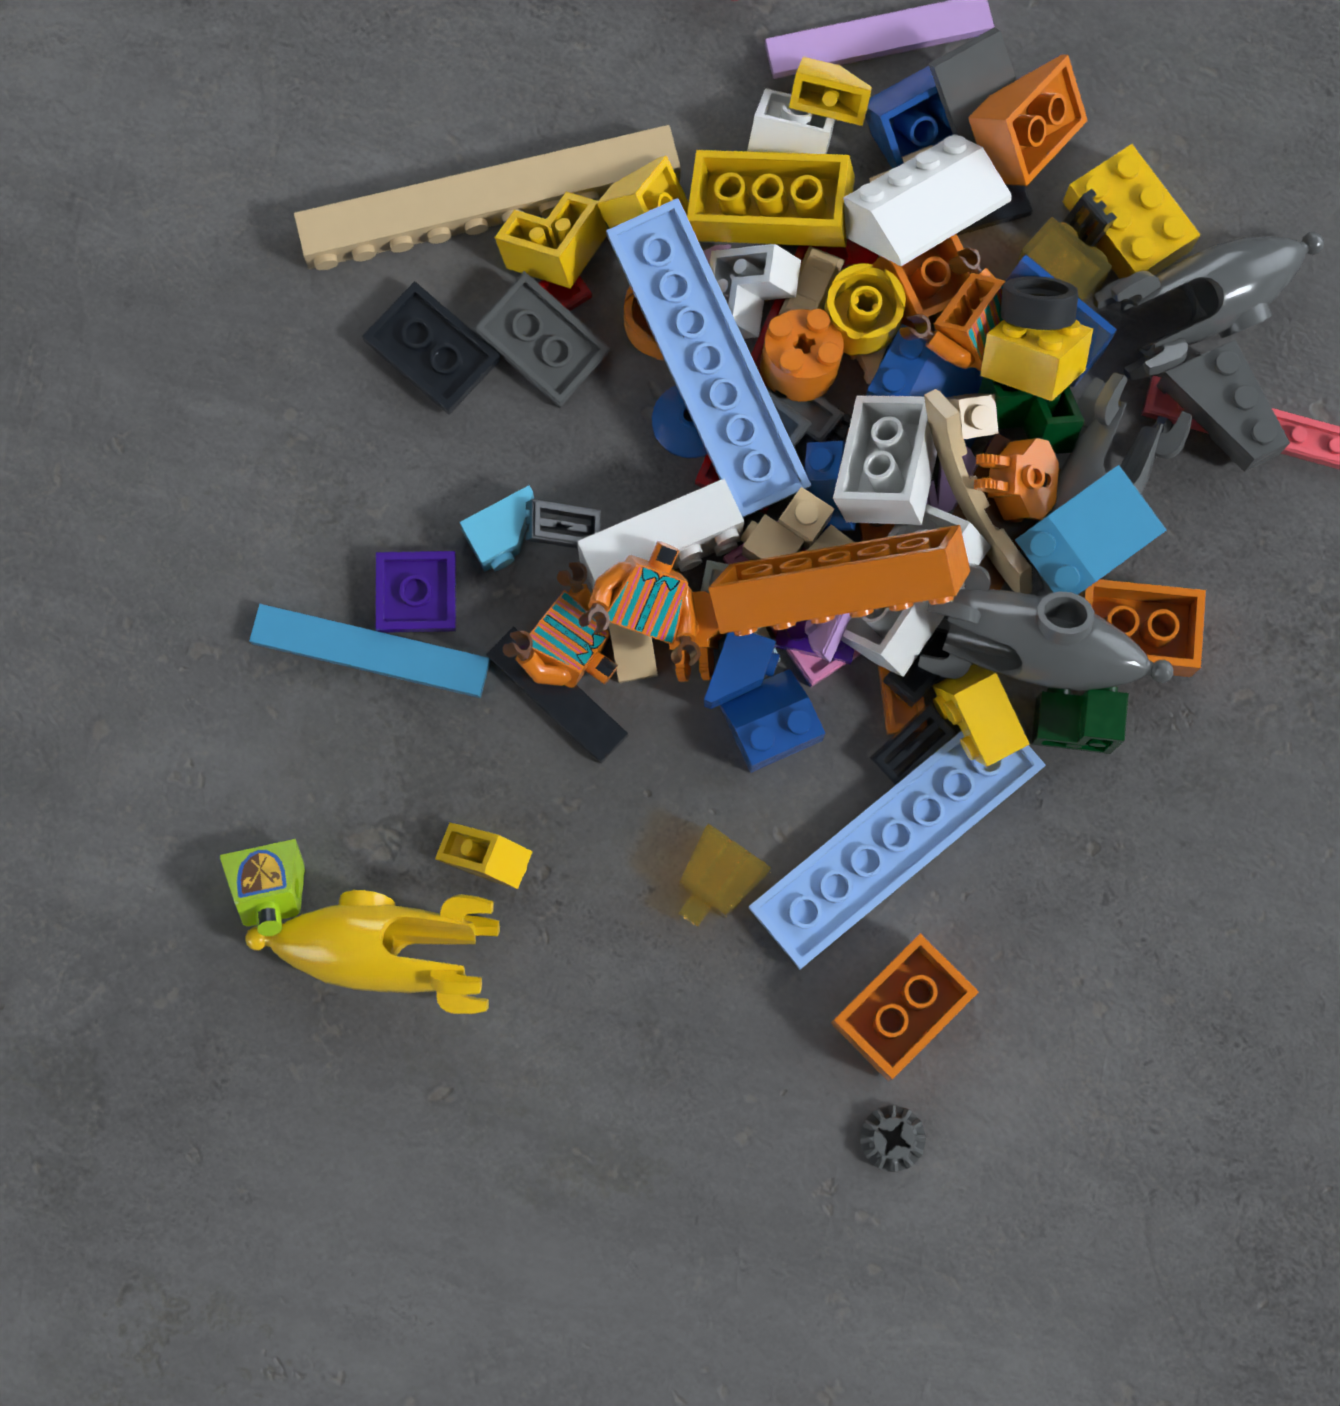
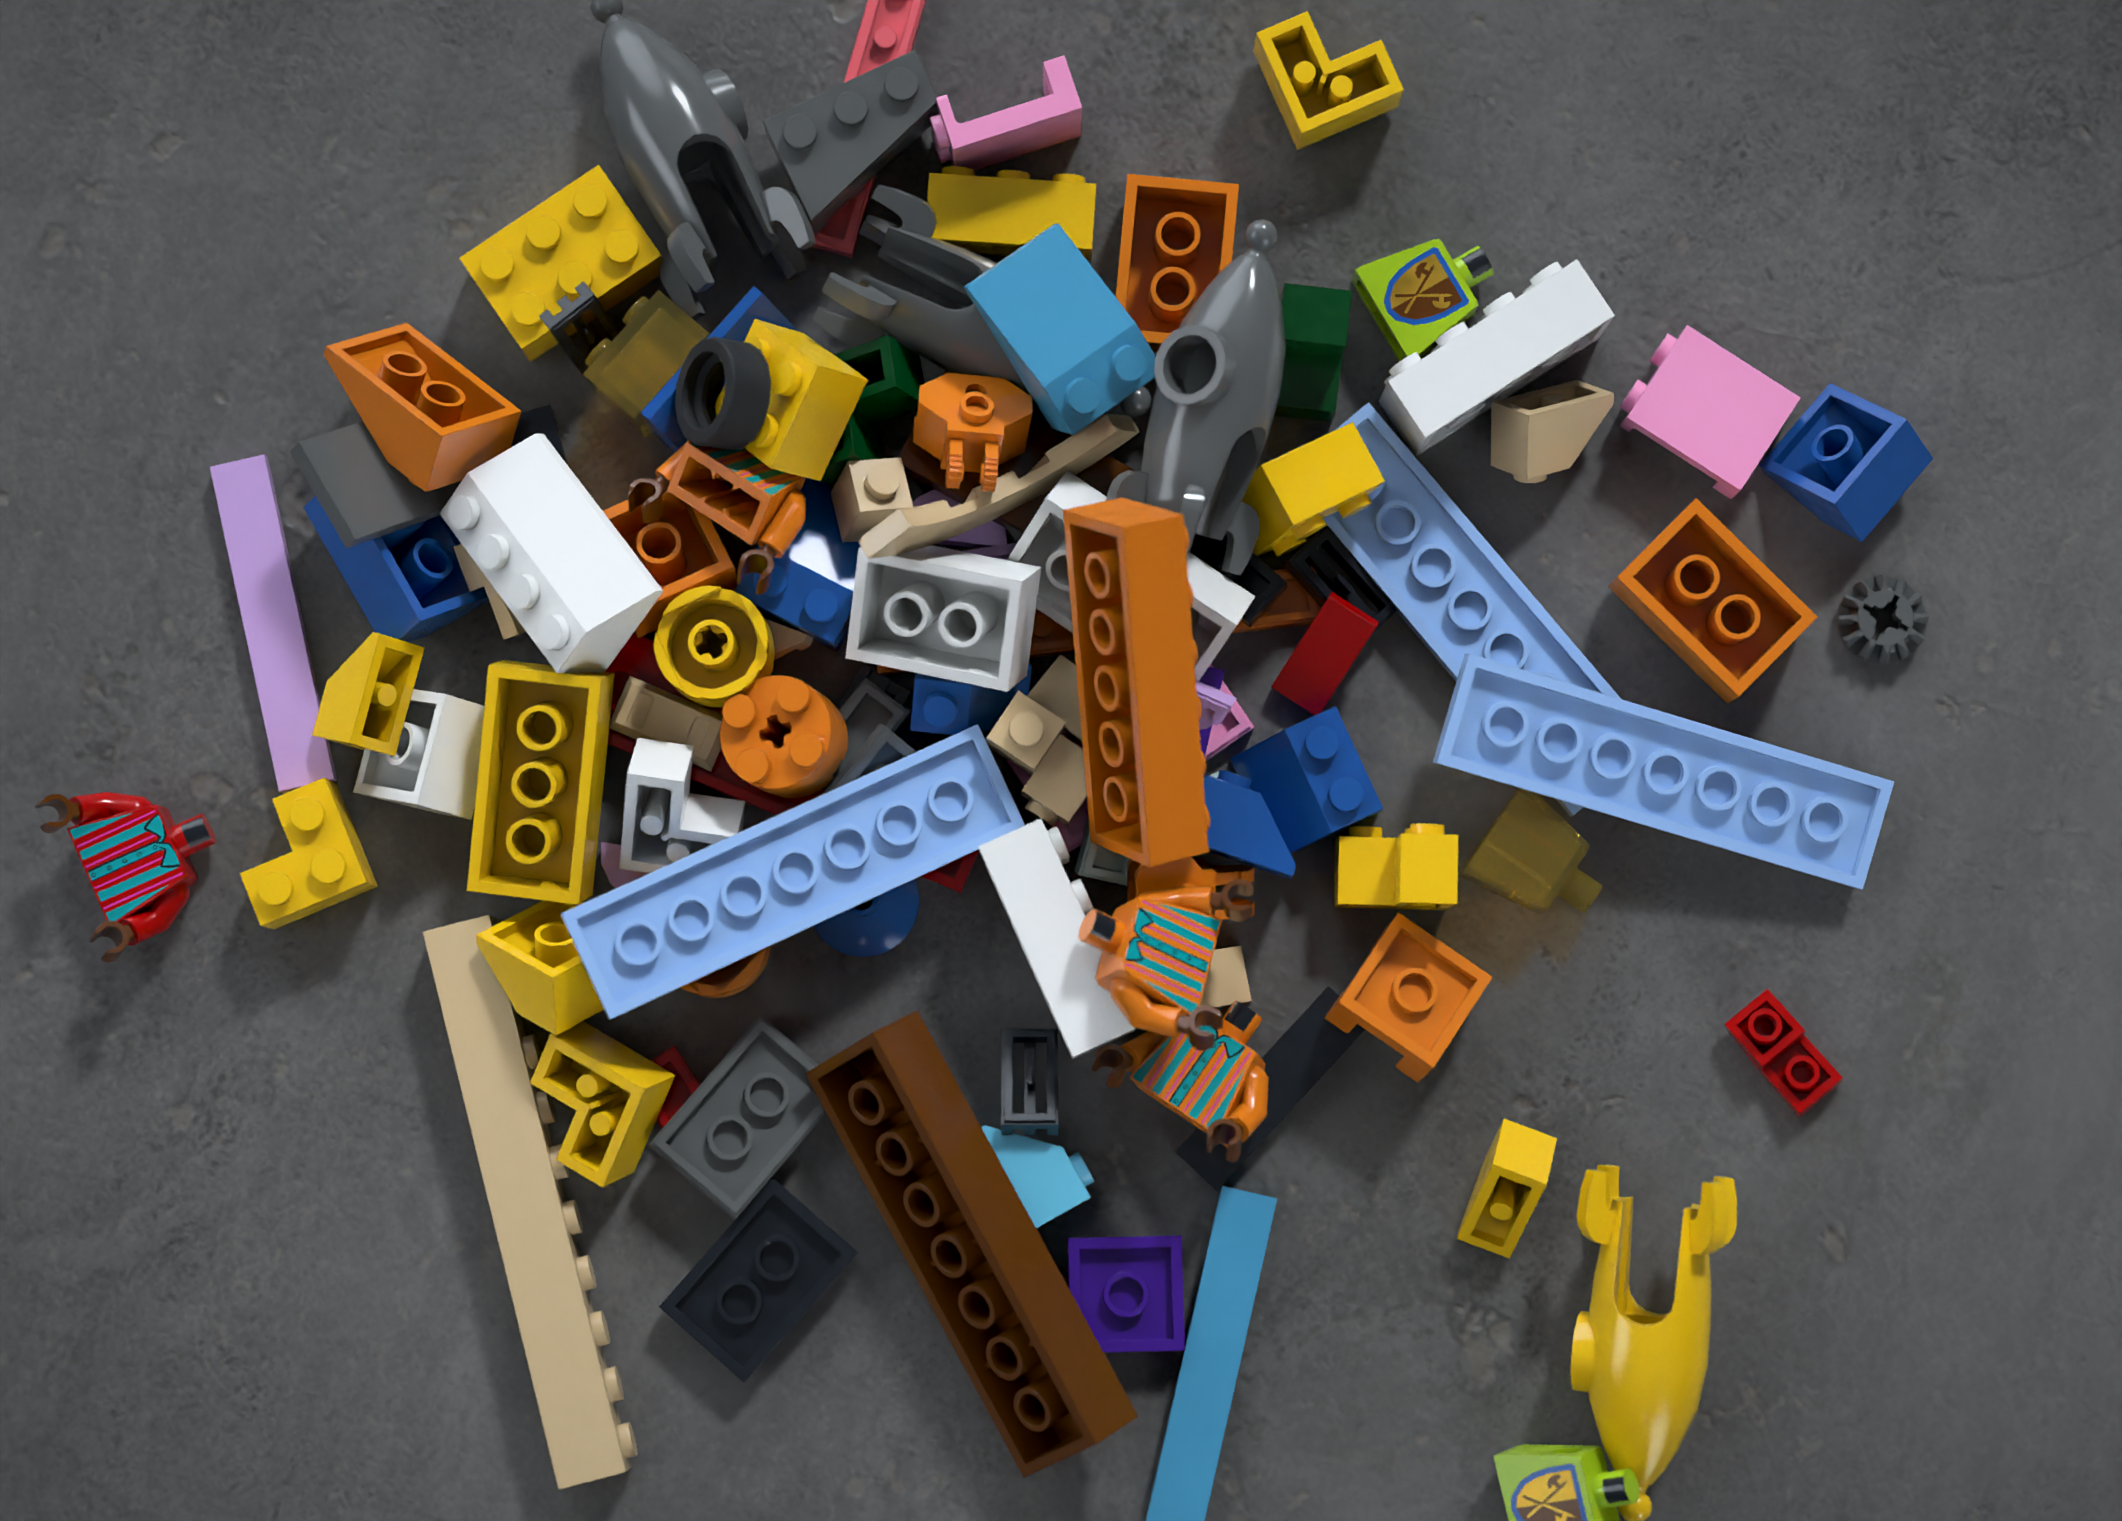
camera: 90 degrees left, 5 degrees up
(452, 481) = (971, 1245): none -> reddish brown brick
(577, 1057) = (1783, 1053): none -> red slope
(620, 784) = (1410, 995): none -> orange panel
(708, 778) = (1396, 873): none -> yellow brick
(720, 65) = (324, 863): none -> yellow brick
(779, 969) = (1663, 771): none -> light blue plate
(864, 731) = (1325, 654): none -> red tile
(1009, 1113) = (1847, 461): none -> blue slope
(1029, 890) = (1545, 428): none -> tan slope
(1045, 1010) = (1709, 408): none -> bright pink panel
(1080, 850) = (1496, 356): none -> white brick
(1124, 805) = (1420, 294): none -> torso
(1175, 498) = (1009, 209): none -> yellow brick
(1235, 515) = (1014, 129): none -> bright pink panel
(1270, 731) = (1321, 94): none -> yellow brick

